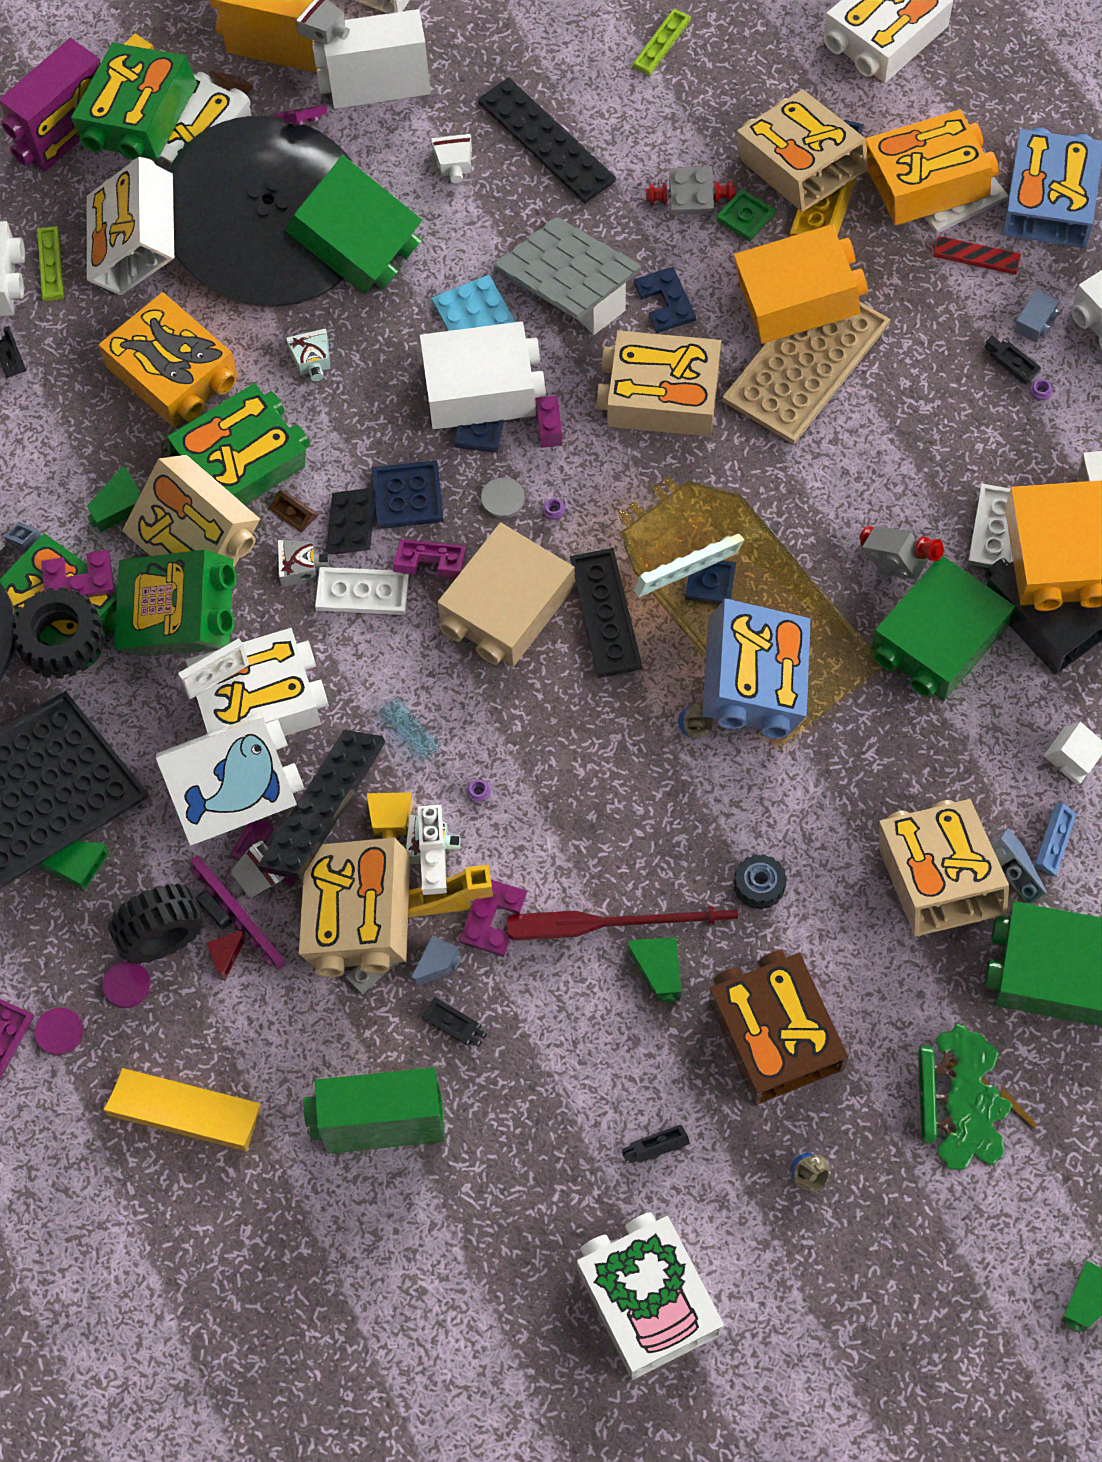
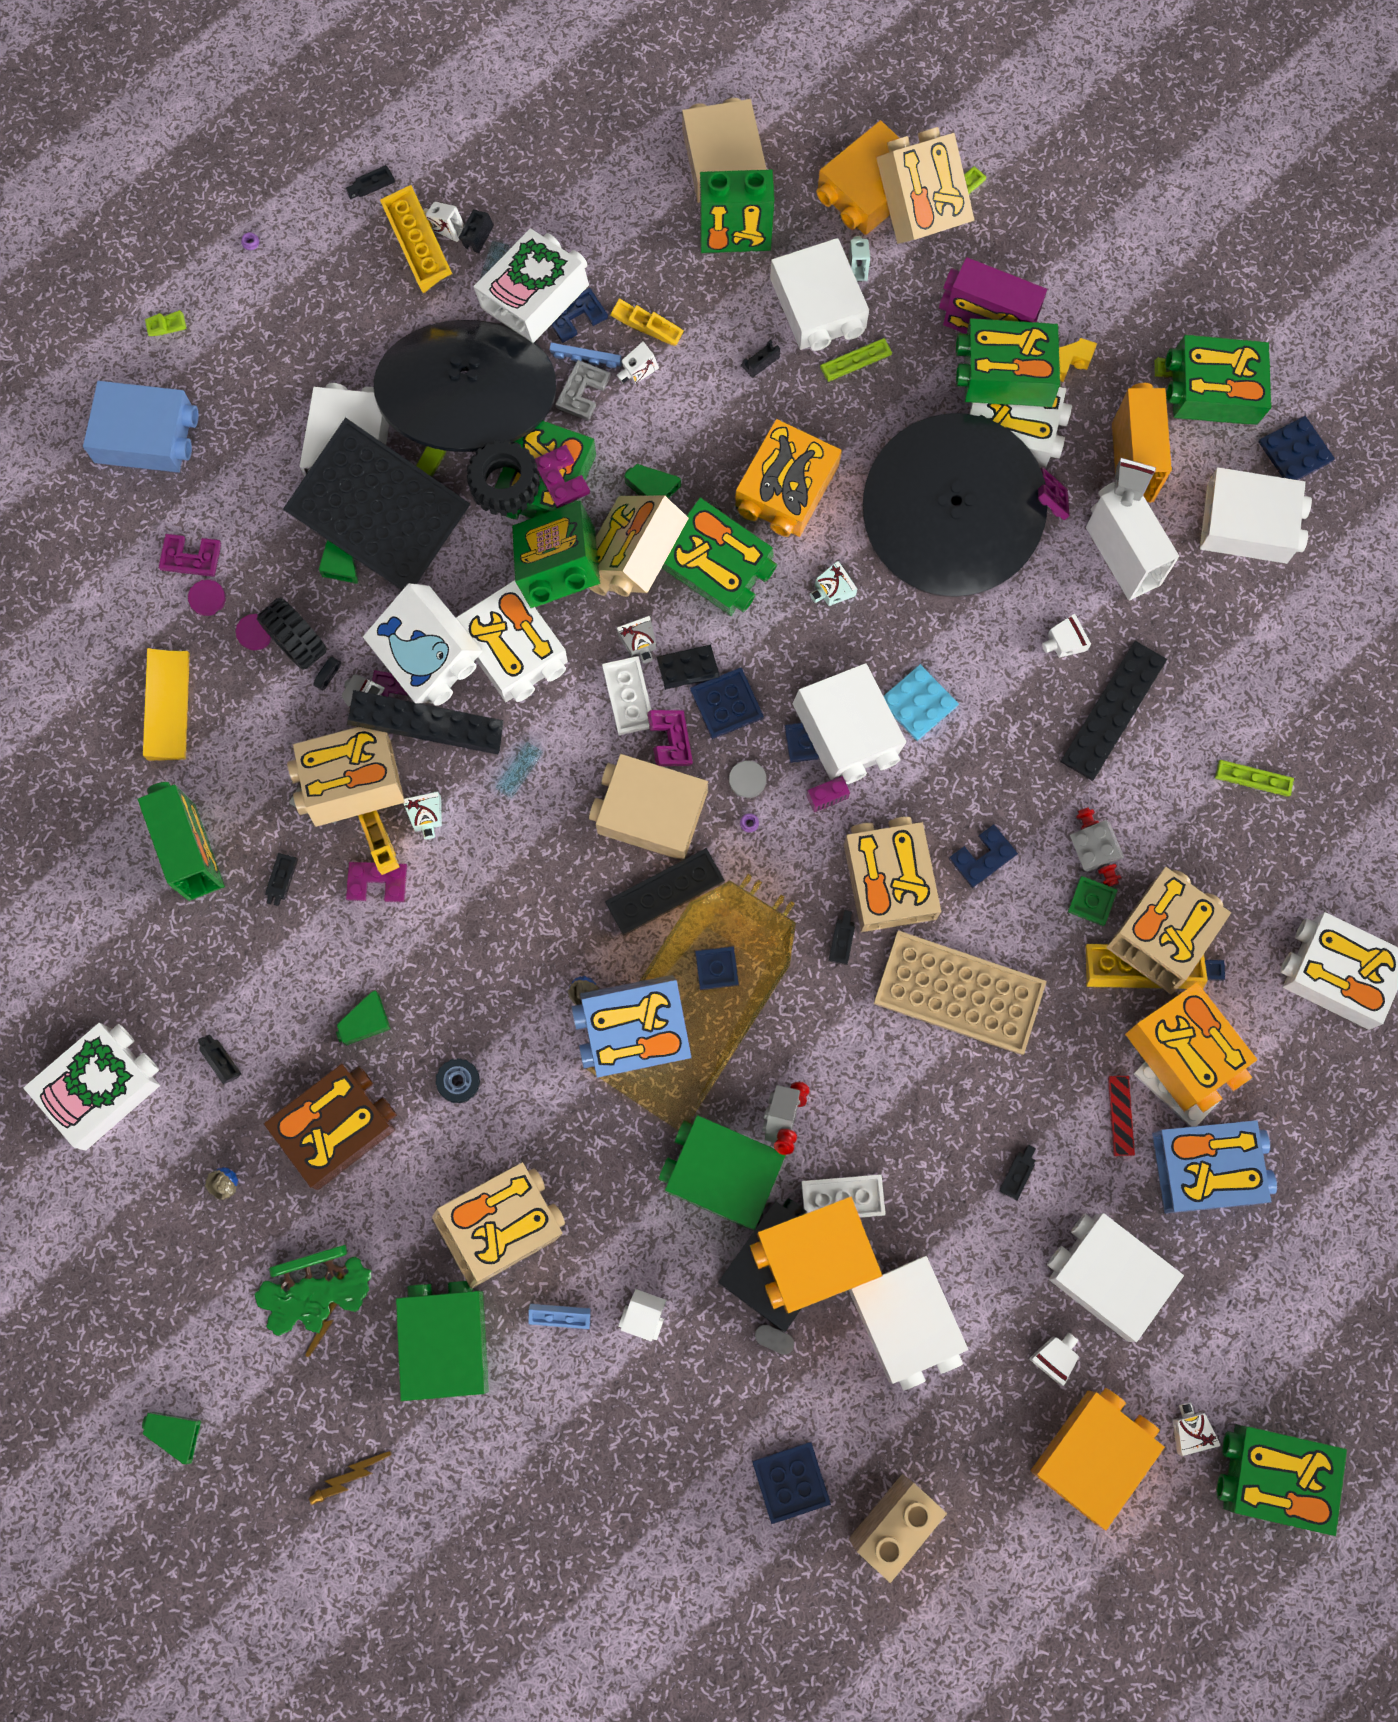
camera: 70 degrees right, 10 degrees up
(22, 536) = (598, 428): sand blue slope -> none
(130, 226) = (896, 403): white brick -> none
(214, 668) = (502, 601): white tile -> none
(225, 952) = (292, 693): dark red slope -> none
(230, 81) = (1074, 434): reddish brown slope -> none
(242, 920) = (331, 687): magenta plate -> none
(292, 510) = (687, 620): reddish brown slope -> none
(355, 226) = (956, 579): green brick -> none
(390, 813) = (437, 777): yellow torso -> none
(432, 849) = (407, 817): white slope -> none
(436, 961) = (327, 850): sand blue slope -> none
(478, 784) = (477, 833): medium lavender plate -> none
(572, 273) = (975, 767): light grey piece -> none
(577, 923) = (385, 946): dark red piece -> none
(688, 565) = (718, 948): light aqua plate -> none
(714, 452) = (842, 939): none -> black hinge
(800, 283) = (1026, 964): light orange brick -> none
(1017, 866) = (527, 1284): sand blue slope -> none
(1036, 316) = (1071, 1184): sand blue brick -> none
(1041, 384) = (1003, 1206): medium lavender plate -> none

